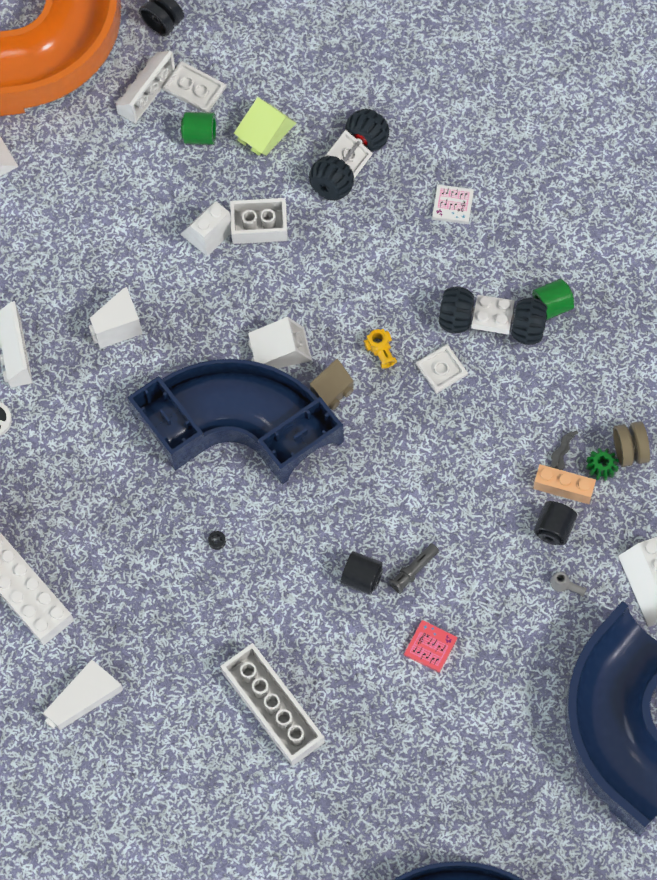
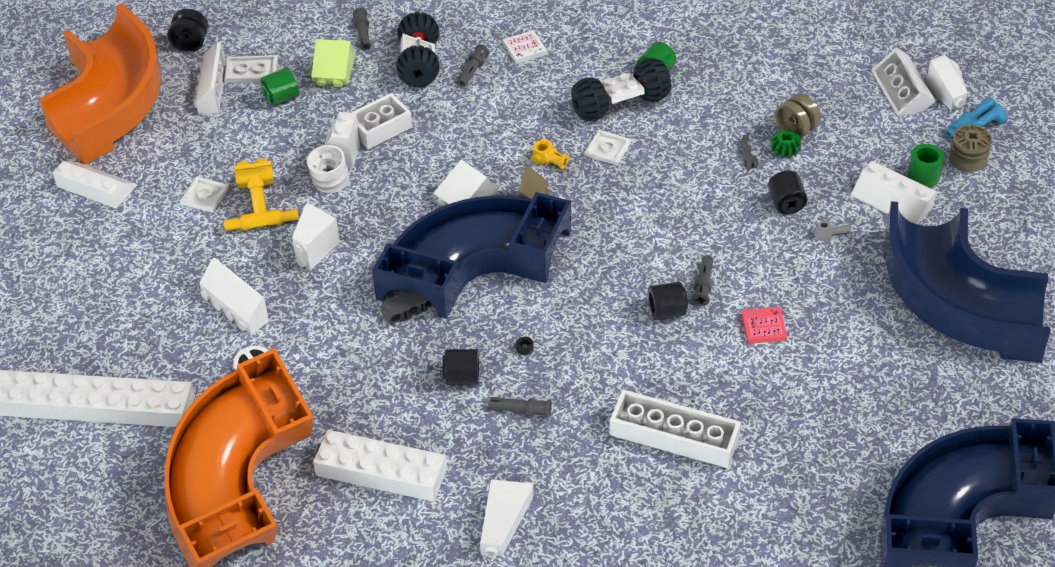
camera: 35 degrees left, 20 degrees down
(65, 212) = (204, 194): none -> white tile
(105, 225) = (254, 177): none -> yellow plate
(140, 439) = (404, 307): none -> dark grey beam
(146, 533) = (461, 366): none -> black piece
(176, 604) = (528, 406): none -> dark grey pin
(177, 242) = (328, 168): none -> white wheel
(324, 90) = (362, 24): none -> dark grey pin
(395, 196) = (475, 61): none -> dark grey pin
(564, 484) = (763, 168): light nougat brick -> none

